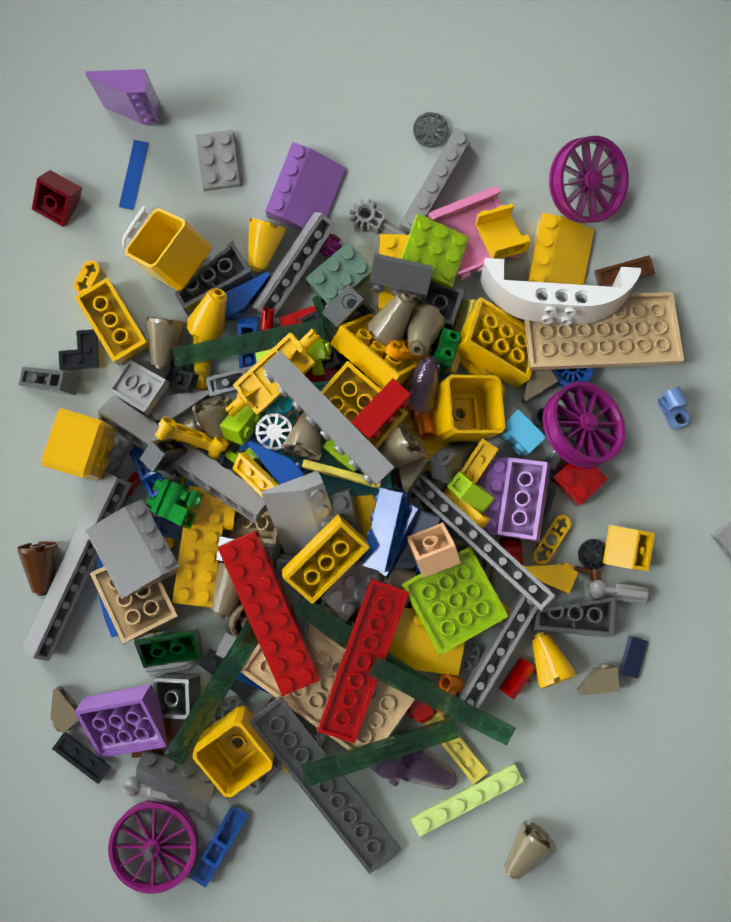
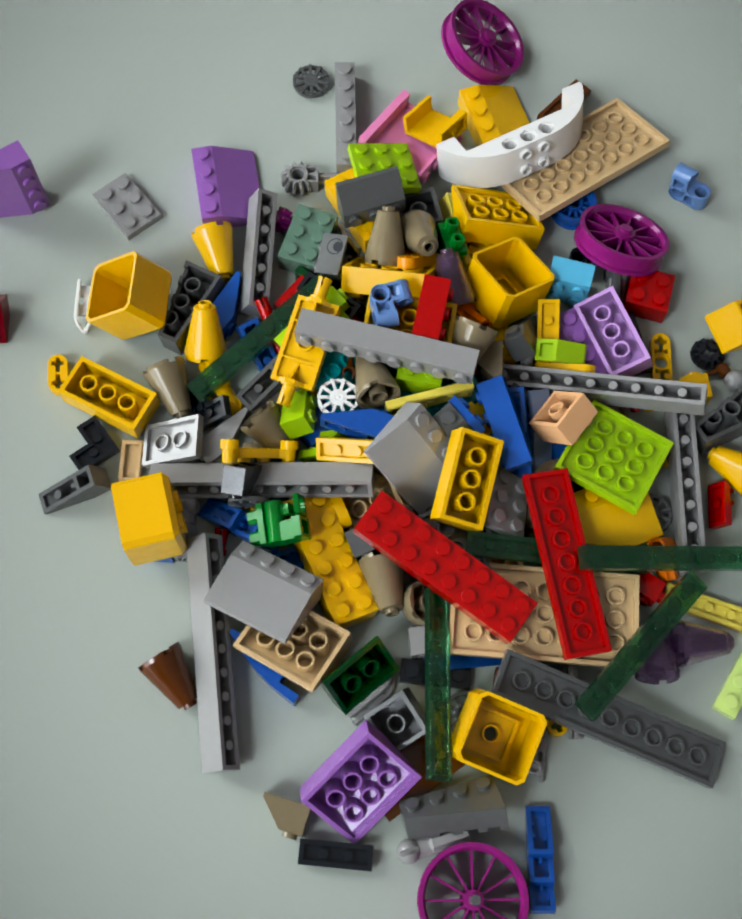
camera: 30 degrees left, 15 degrees down
(102, 381) = (131, 460): none -> tan tile
(133, 174) = (50, 261): blue sticker -> none
(358, 498) = (462, 407): none -> blue plate
(362, 379) = (395, 295): none -> medium blue piece
(538, 382) = (554, 232): dark tan slope -> none

